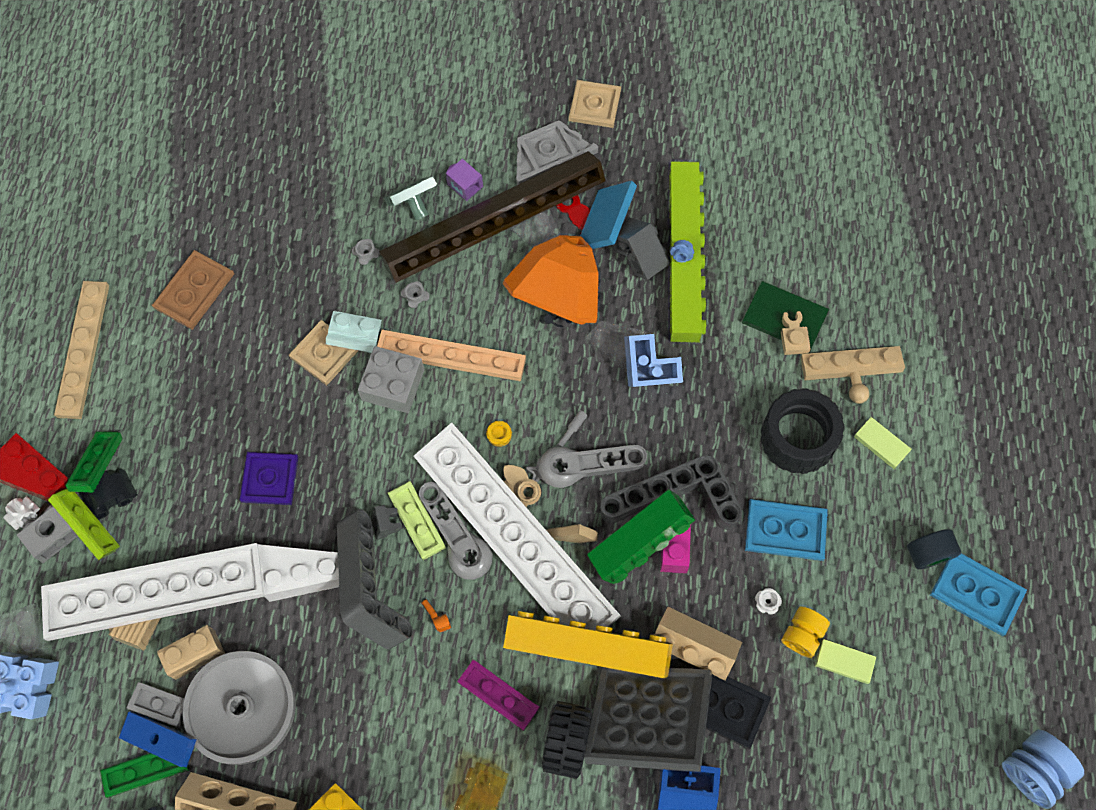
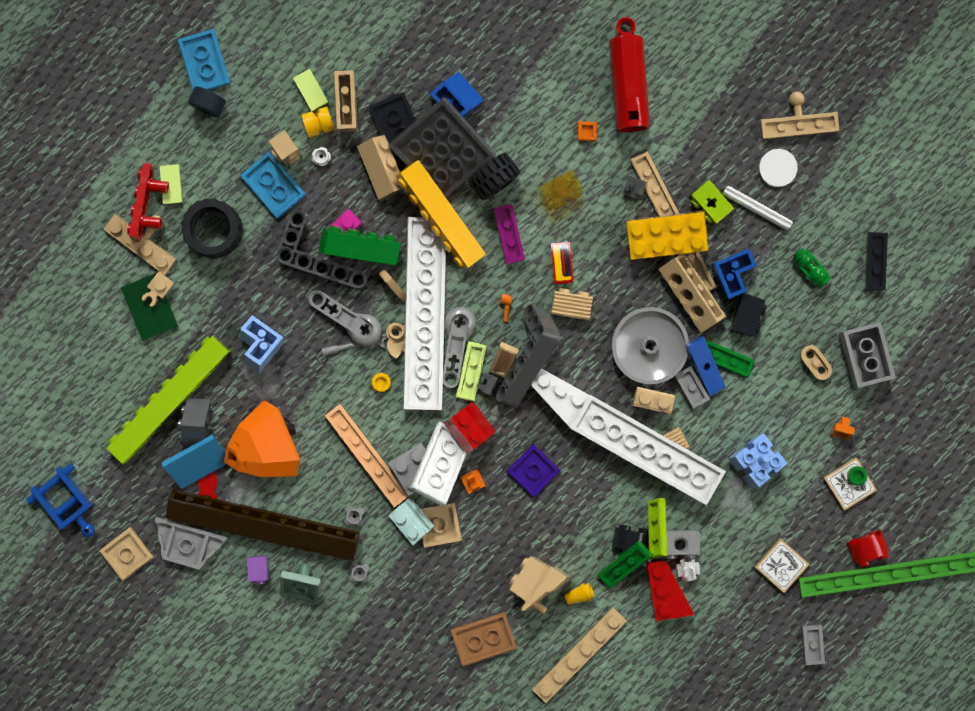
camera: 135 degrees left, 20 degrees up
(123, 401) = (580, 594): none -> yellow cone
(173, 373) = (536, 582): none -> tan piece
(323, 417) = (472, 481): none -> orange tile
(364, 678) = (572, 304): none -> tan brick
(366, 399) = (439, 466): none -> white tile
(367, 462) = (470, 427): none -> red slope
(390, 557) = (503, 360): none -> tan tile
(413, 714) = (562, 263): none -> slope
(682, 251) = (176, 394): medium blue plate -> none
(684, 112) = (38, 494): none -> blue piece
(799, 680) = (346, 101): none -> tan brick
(811, 571) = (284, 148): none -> tan brick
(887, 388) = (142, 194): none -> red plate

